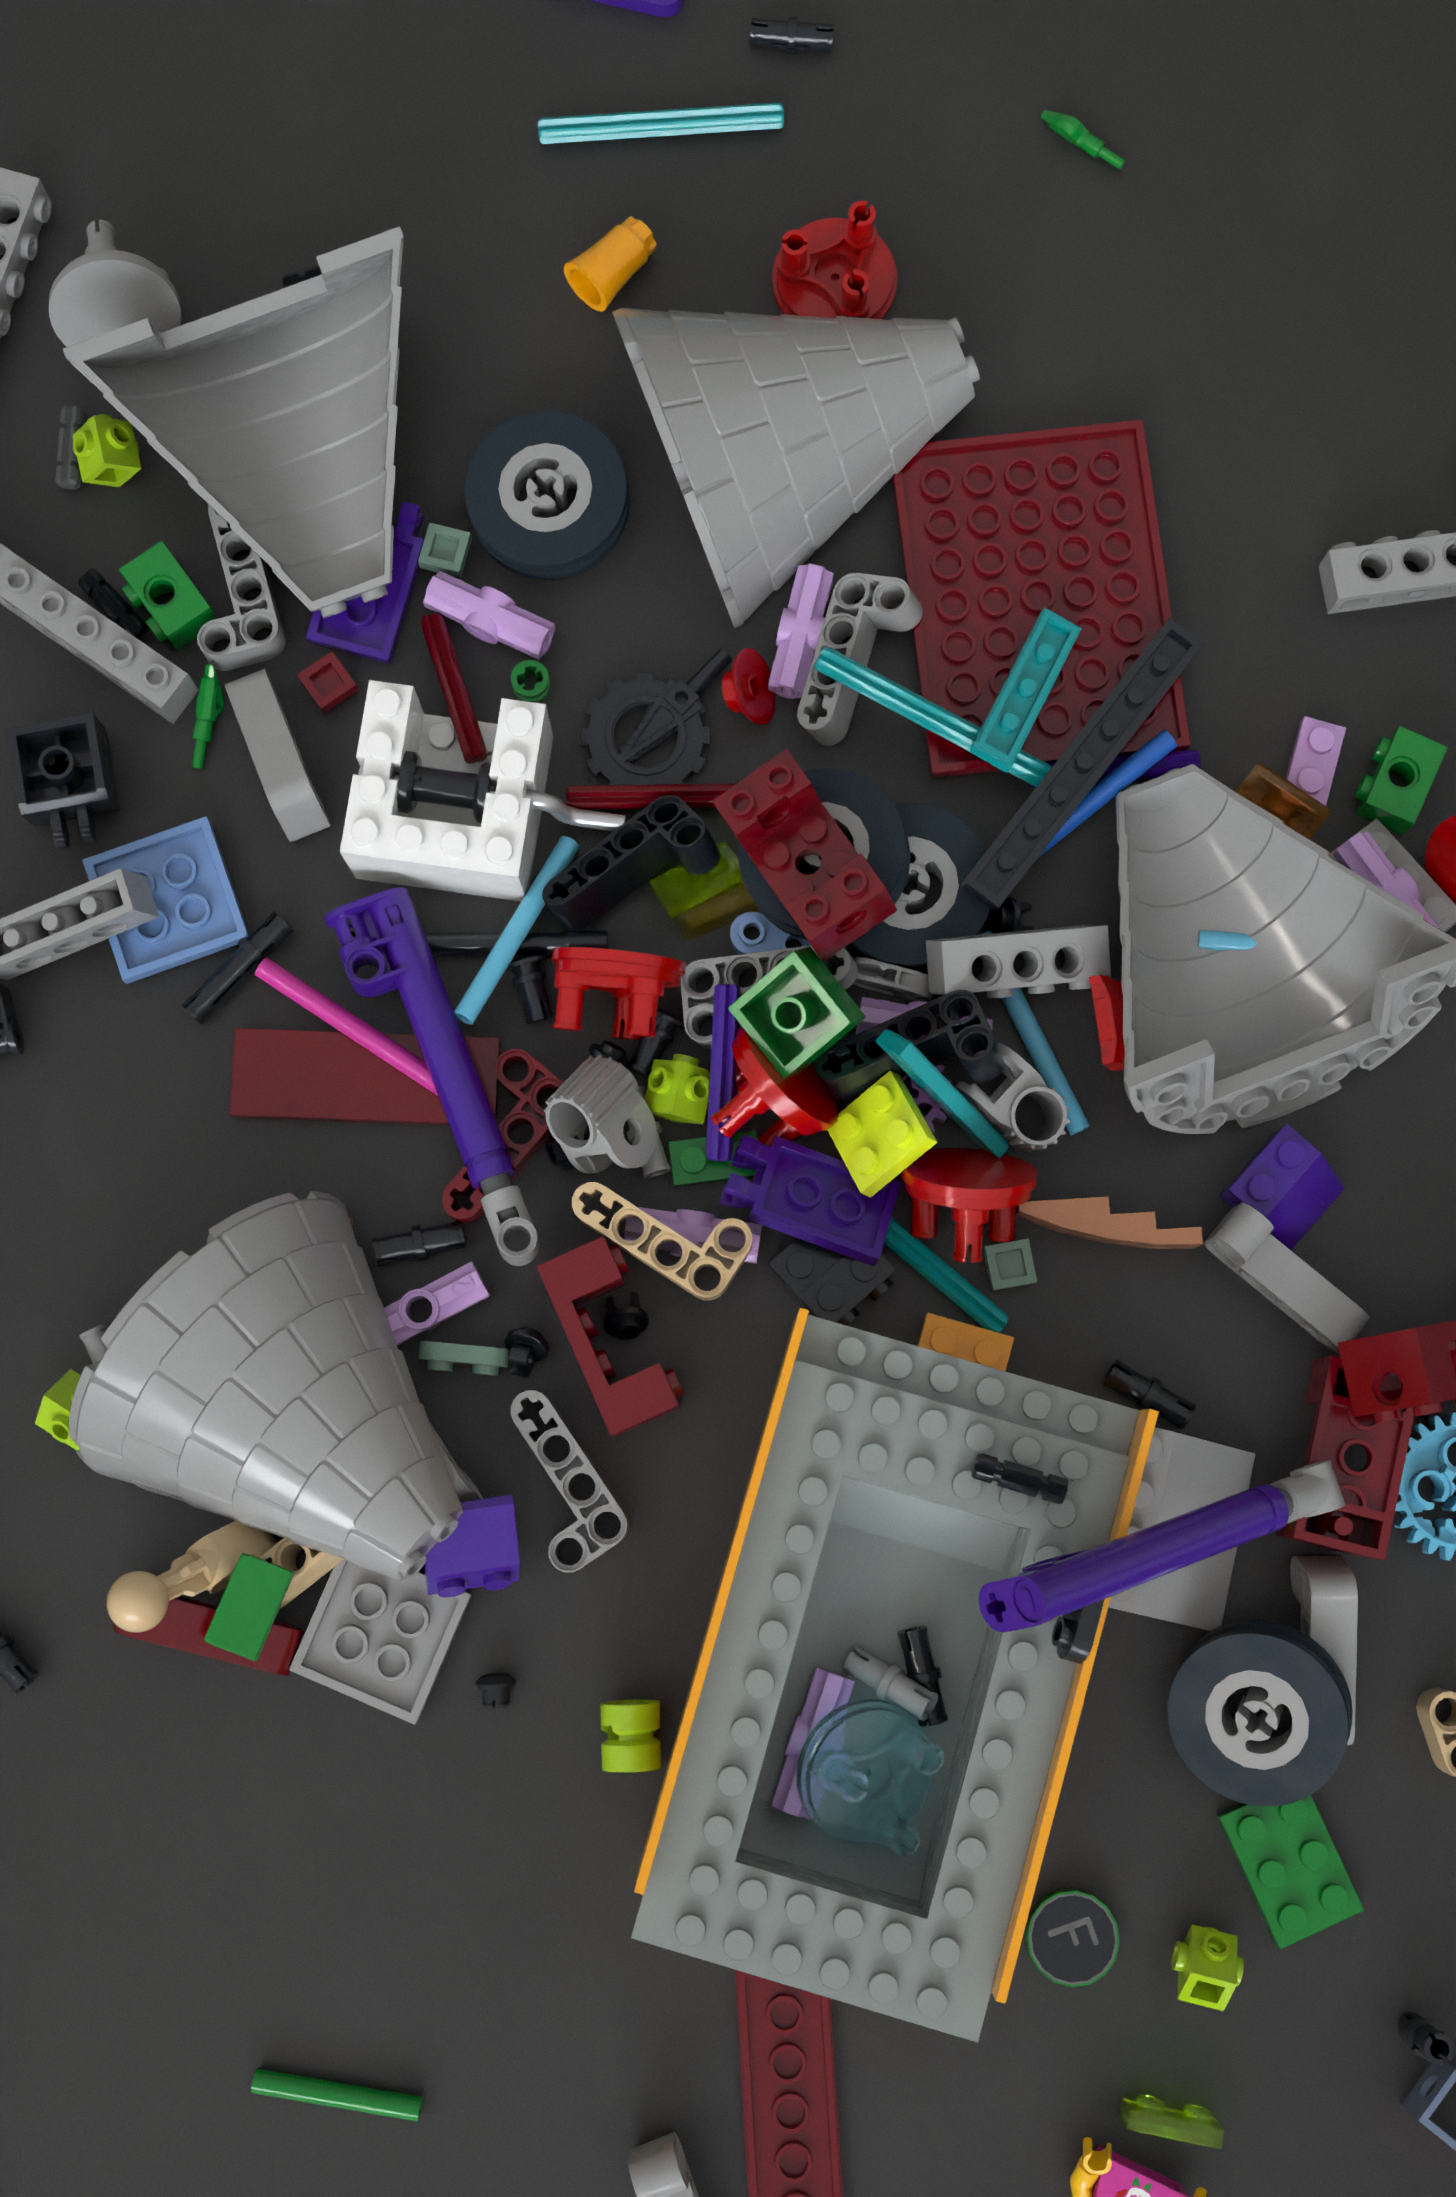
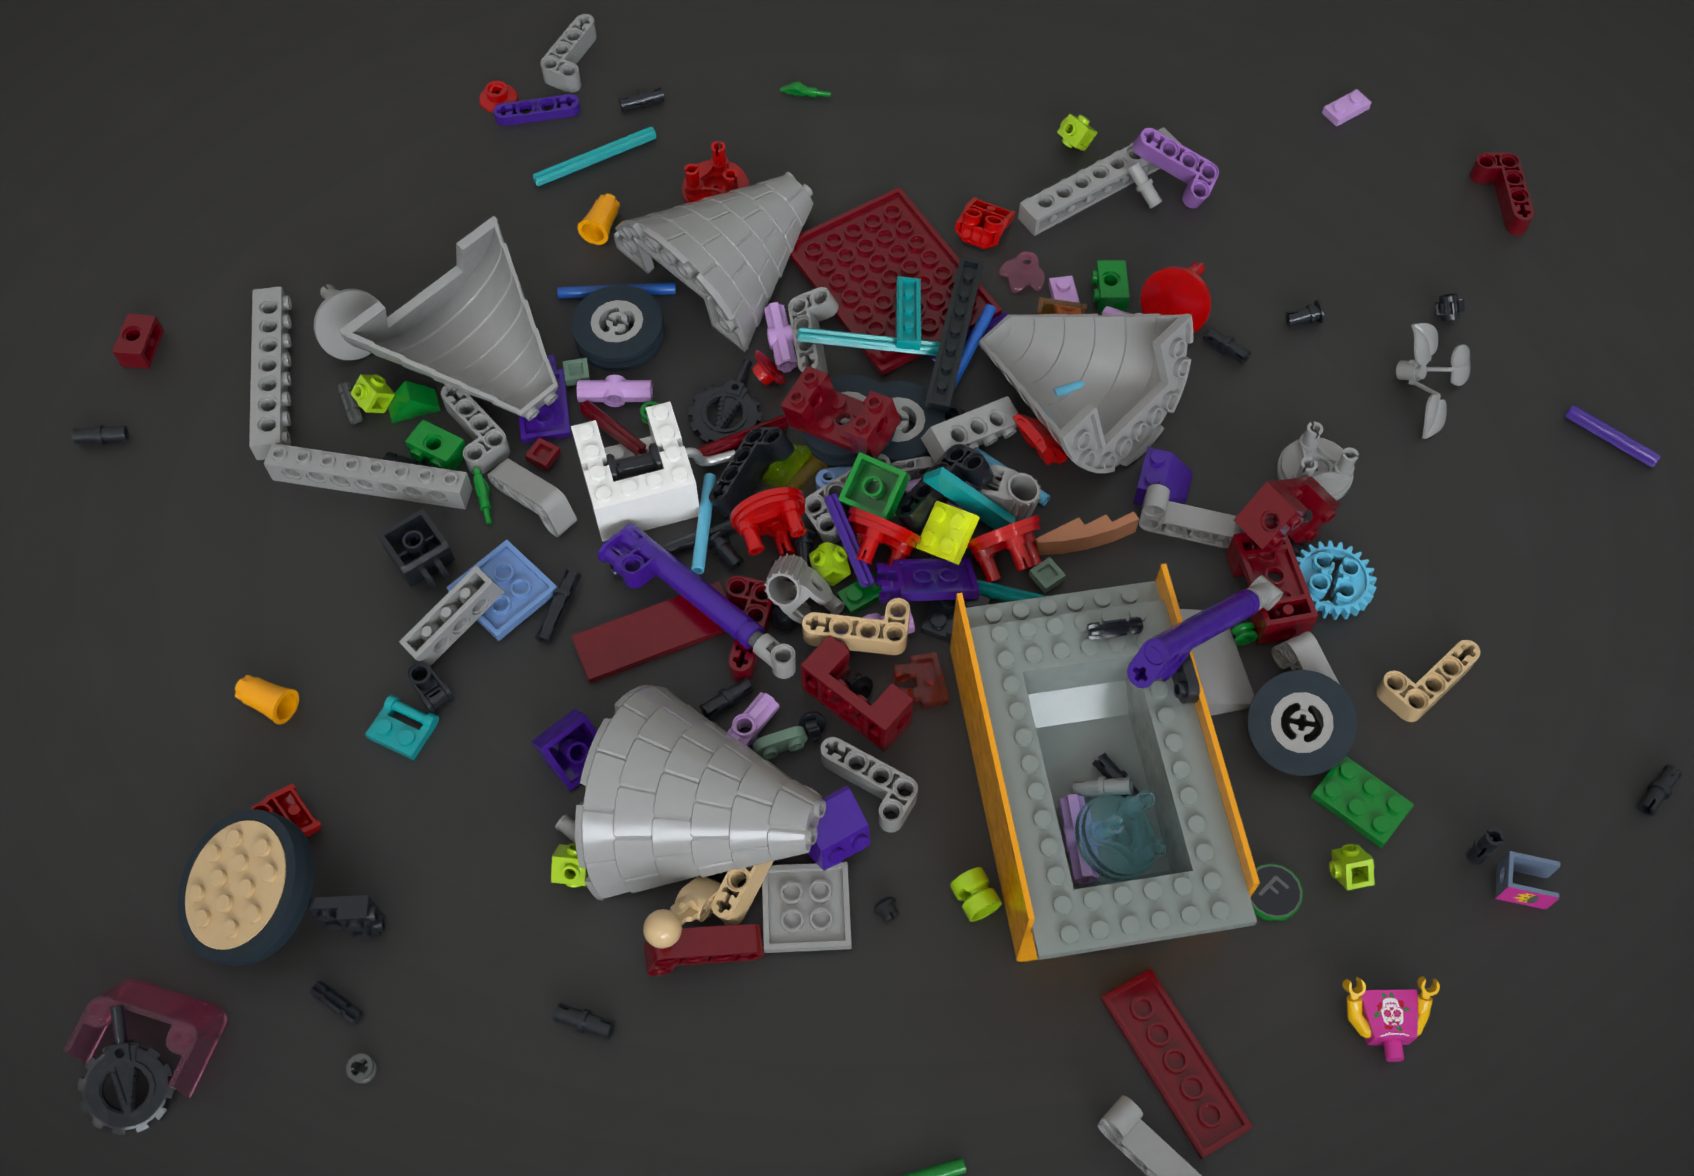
camera: 25 degrees left, 20 degrees down
(152, 1217) = (566, 746): none -> dark purple slope
(163, 492) = (413, 401): none -> green slope
(249, 1606) = (726, 912): green slope -> none
(345, 1022) = (637, 605): dark pink piece -> none
(542, 401) = (583, 291): none -> blue piece
(734, 1357) = (928, 679): none -> clear red plate
(1187, 2125) = (1393, 957): clear neon green plate -> none
(1250, 556) = (983, 223): none -> red slope
(1265, 689) = (1021, 274): none -> clear pink plate

